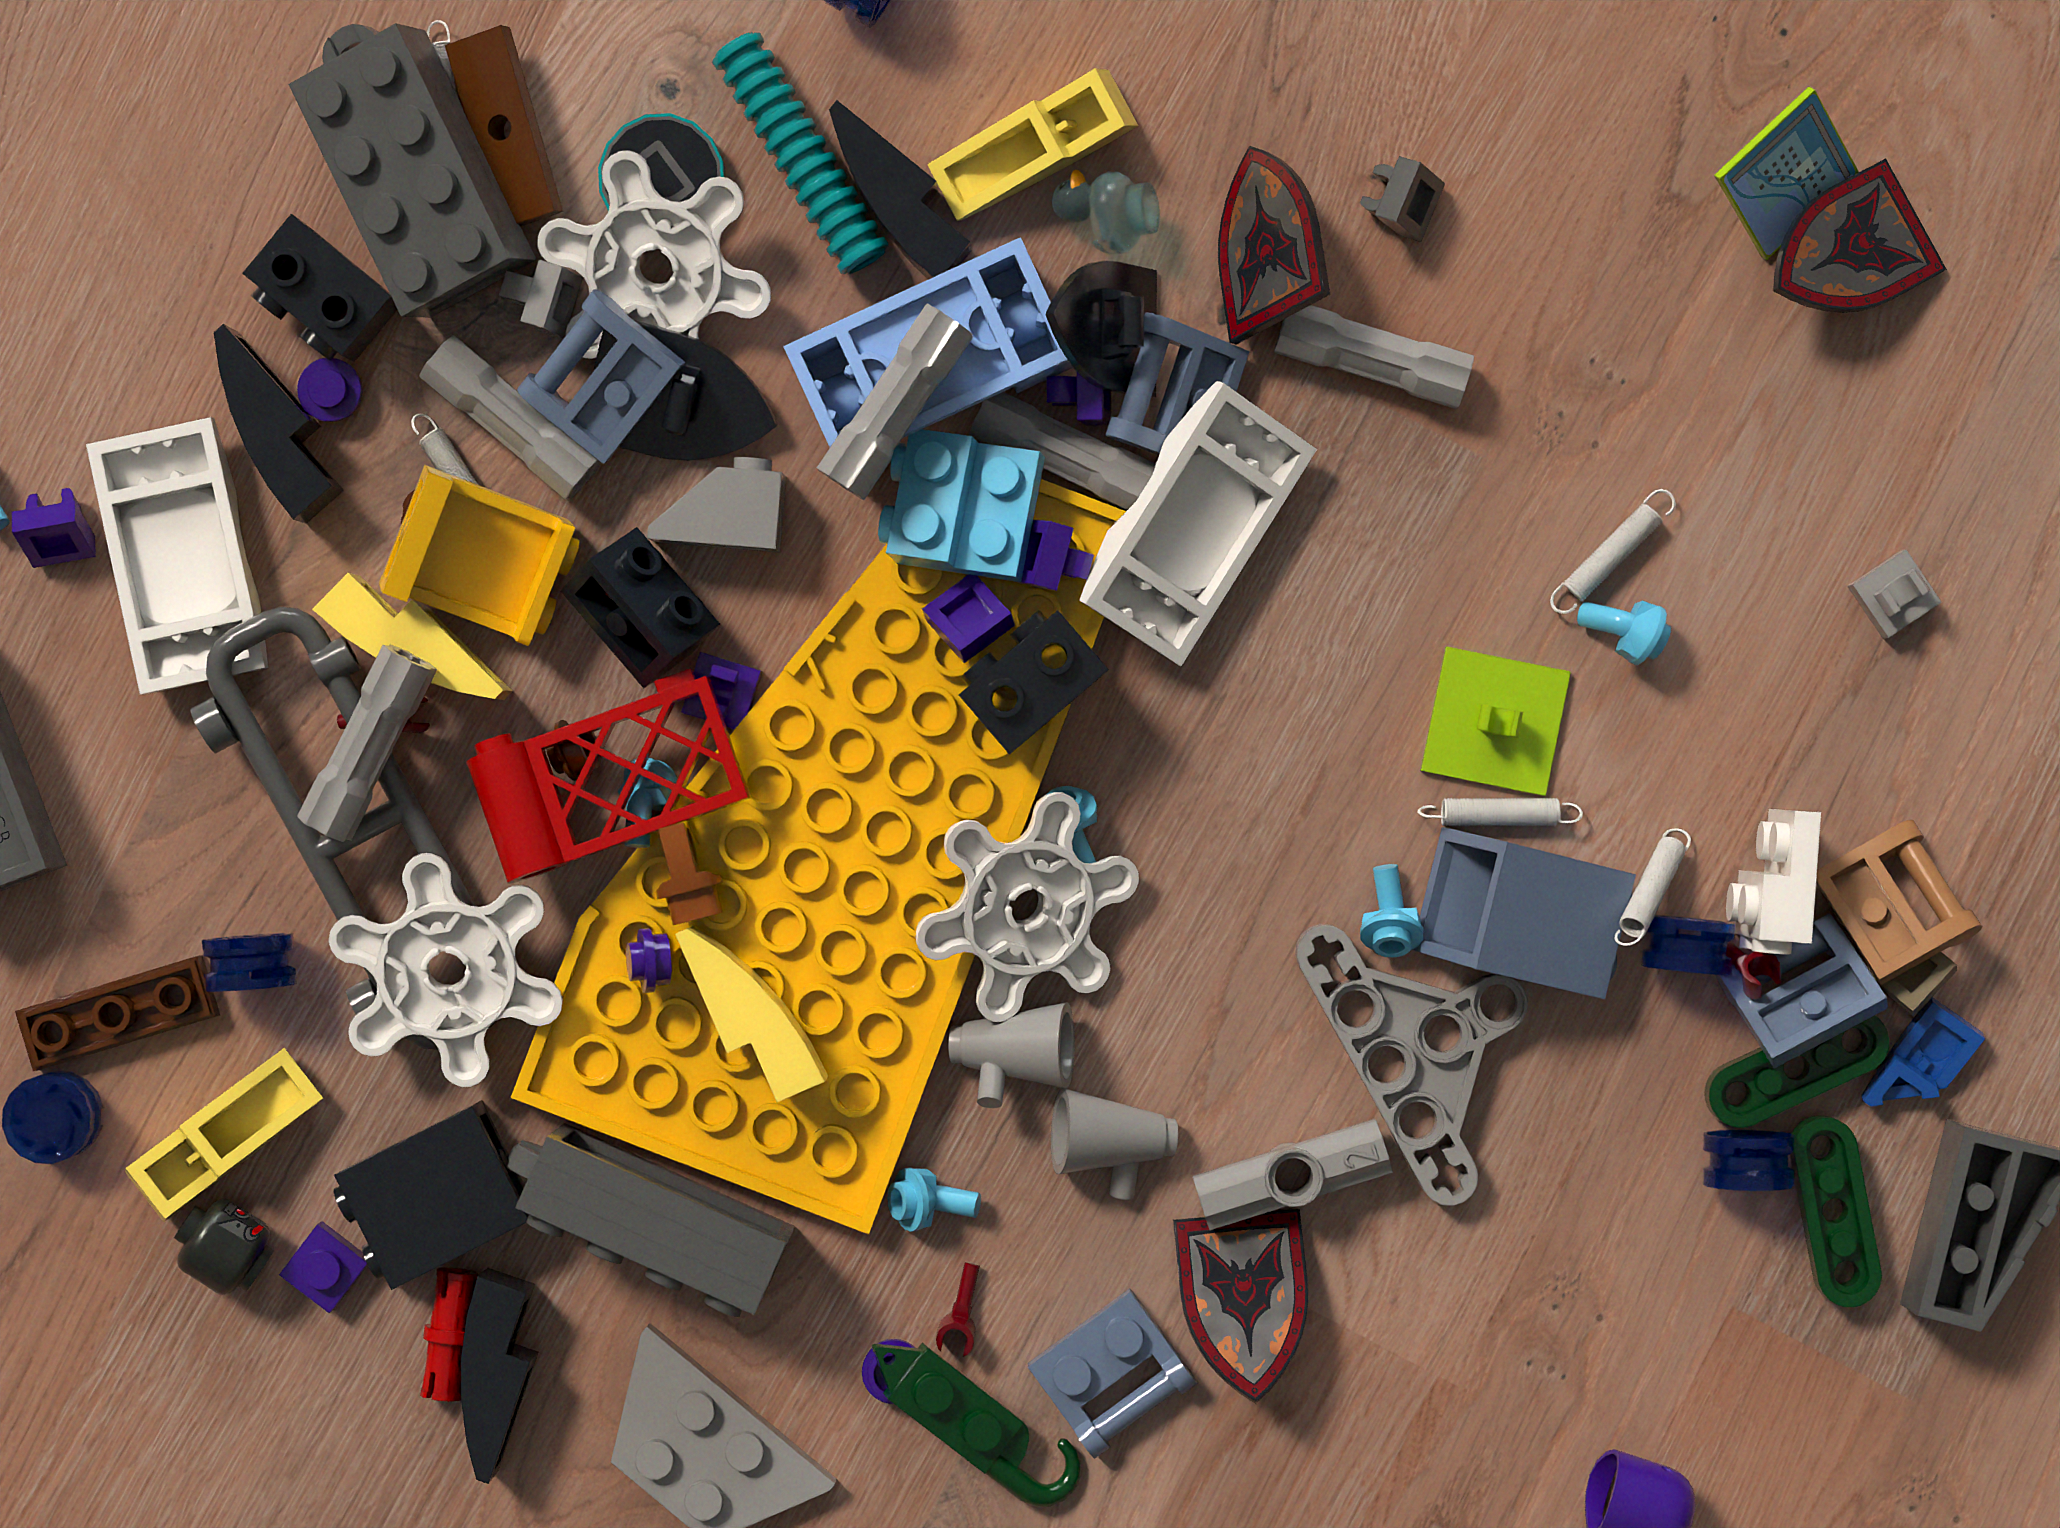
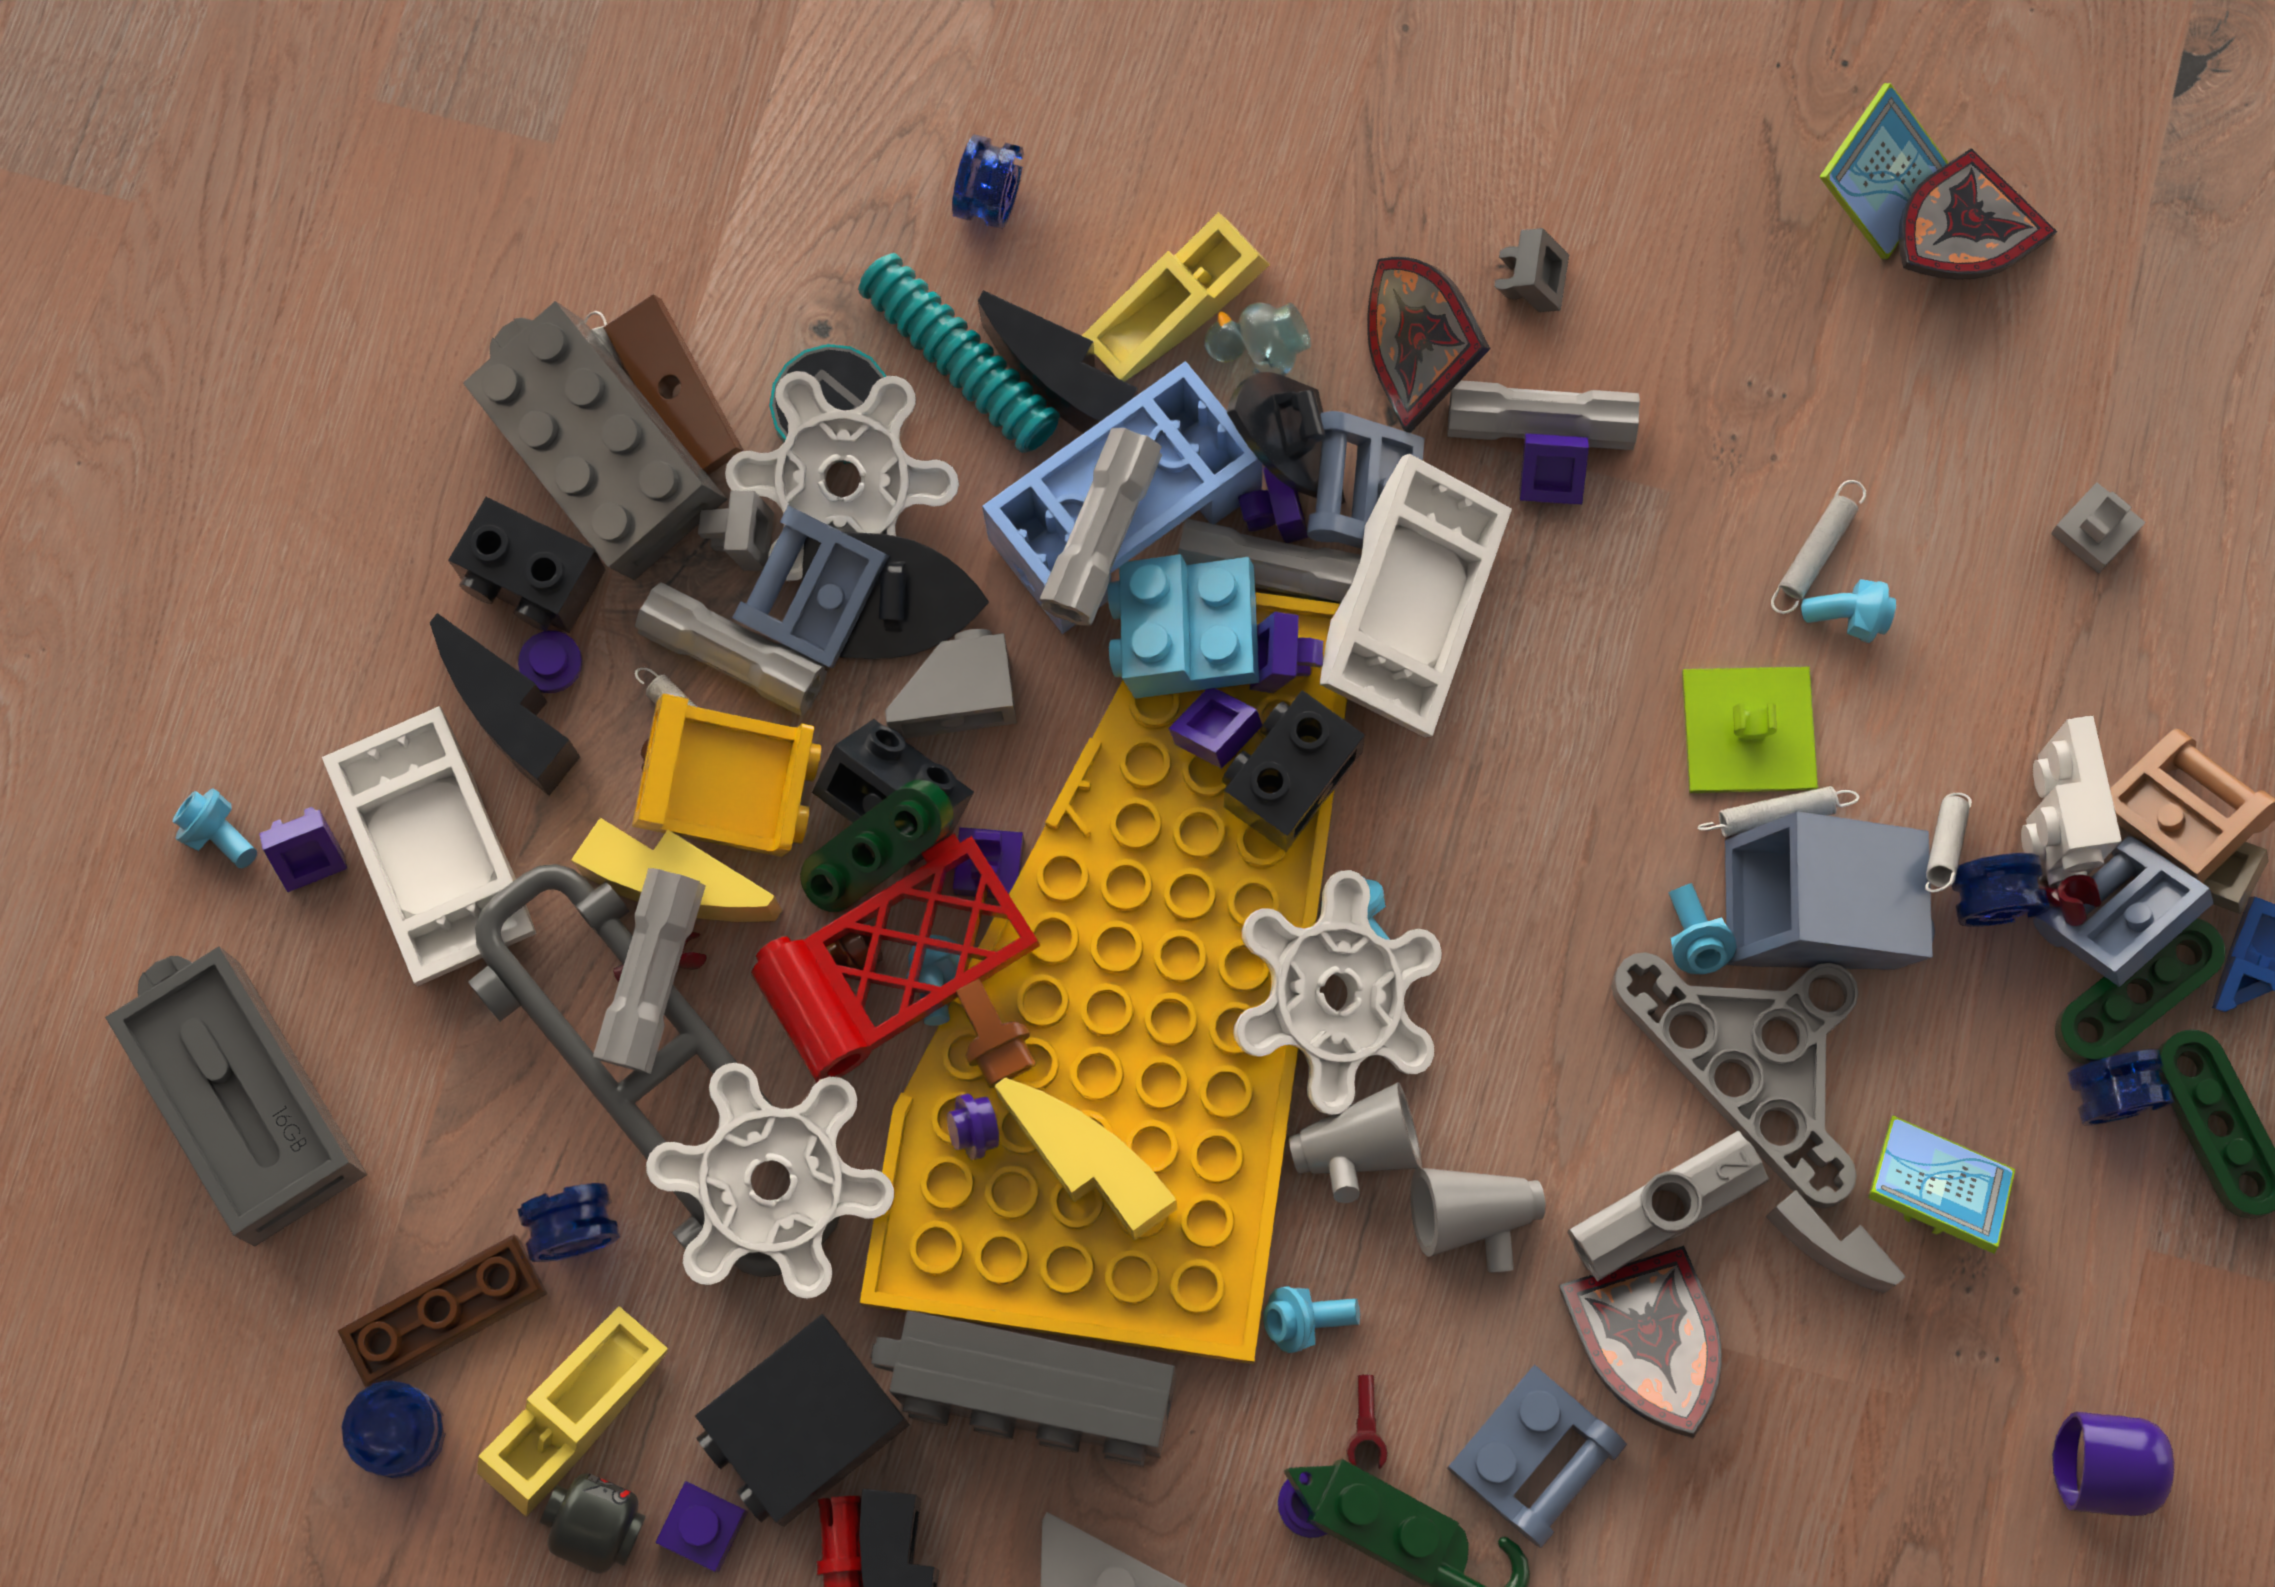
camera: 10 degrees left, 15 degrees down
(612, 663) = (889, 835): none -> dark green plate
(1370, 414) = (1553, 468): none -> dark purple plate
(1449, 1255) = (1853, 1258): none -> light grey slope
(1554, 1214) = (1942, 1184): none -> piece

